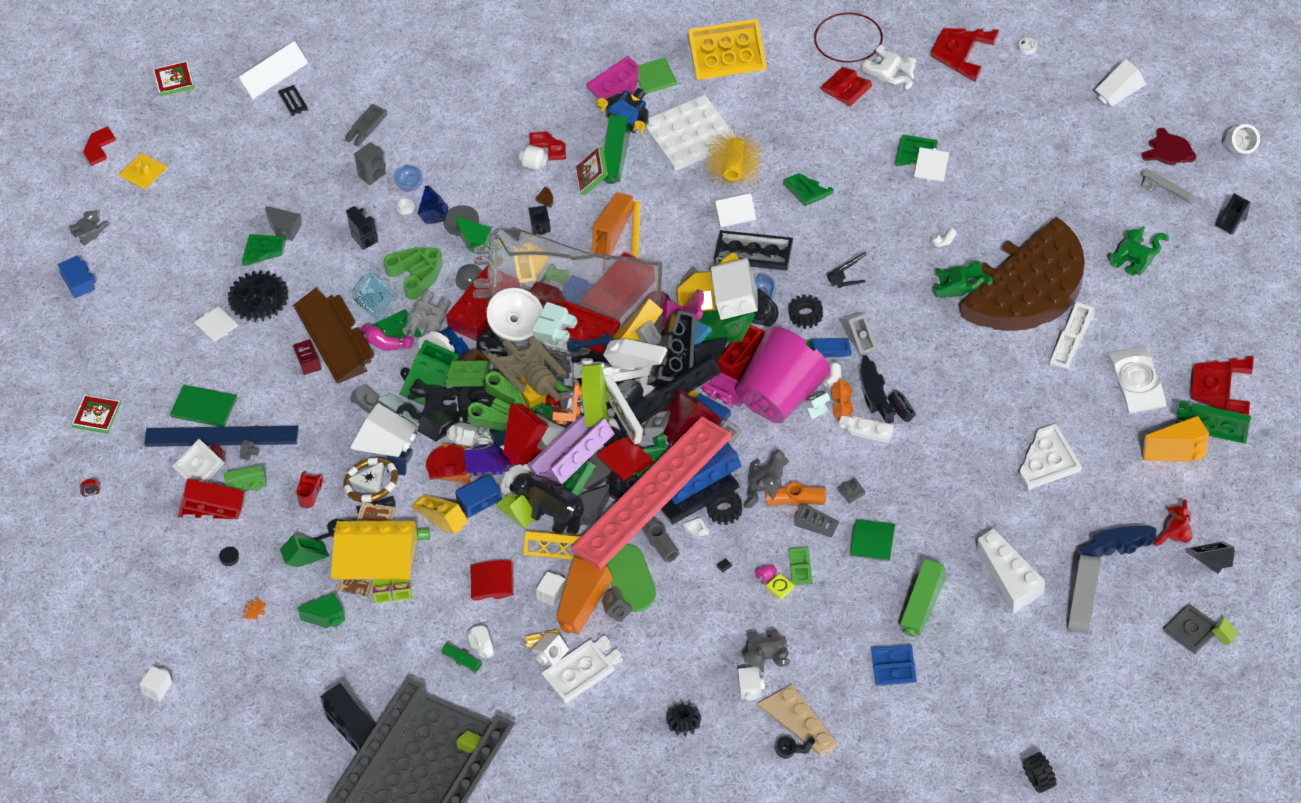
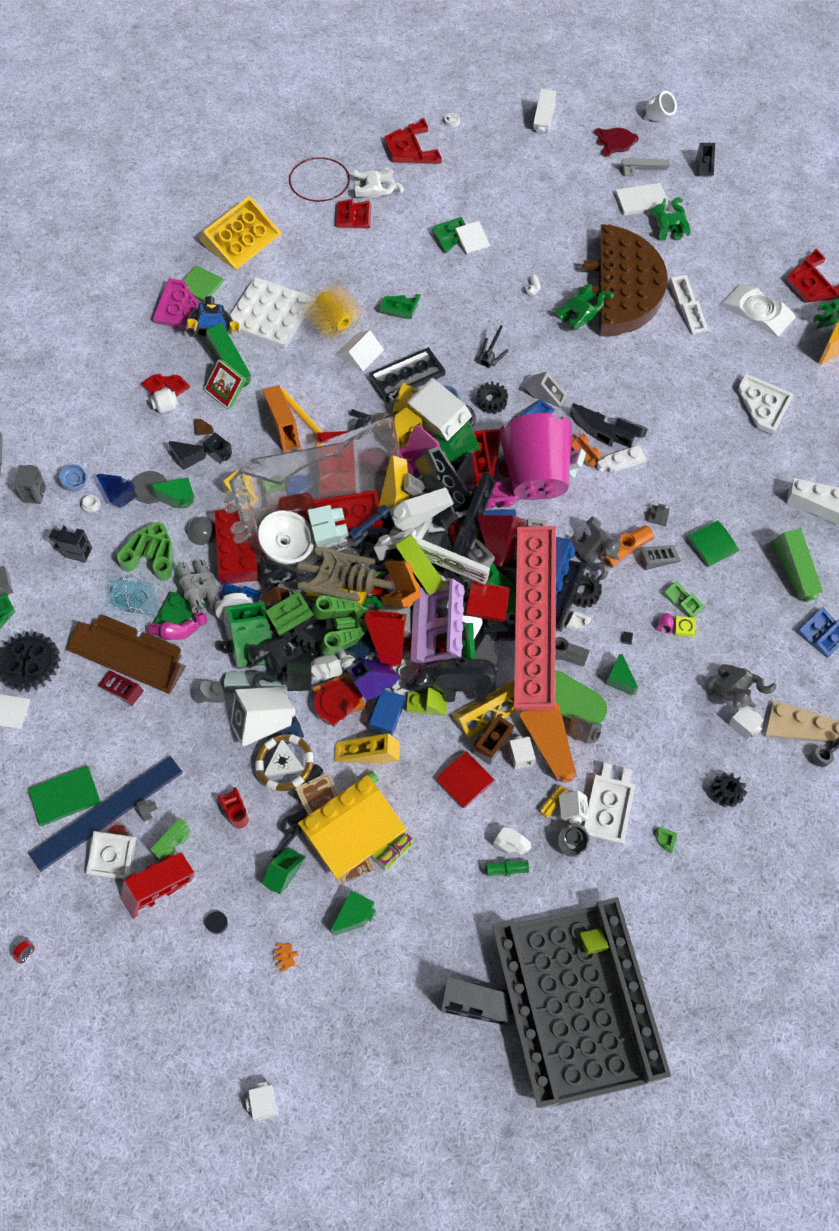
camera: 45 degrees left, 10 degrees up
(511, 211) = (186, 453): none -> black slope
(526, 665) = (576, 833): none -> dark grey hair
(535, 563) = (493, 739): none -> reddish brown brick
(601, 721) = (666, 838): none -> bright green tile
(672, 269) = (363, 418): none -> black plate
(685, 585) = (621, 677): none -> green slope
(1129, 215) = (640, 198): none -> white tile

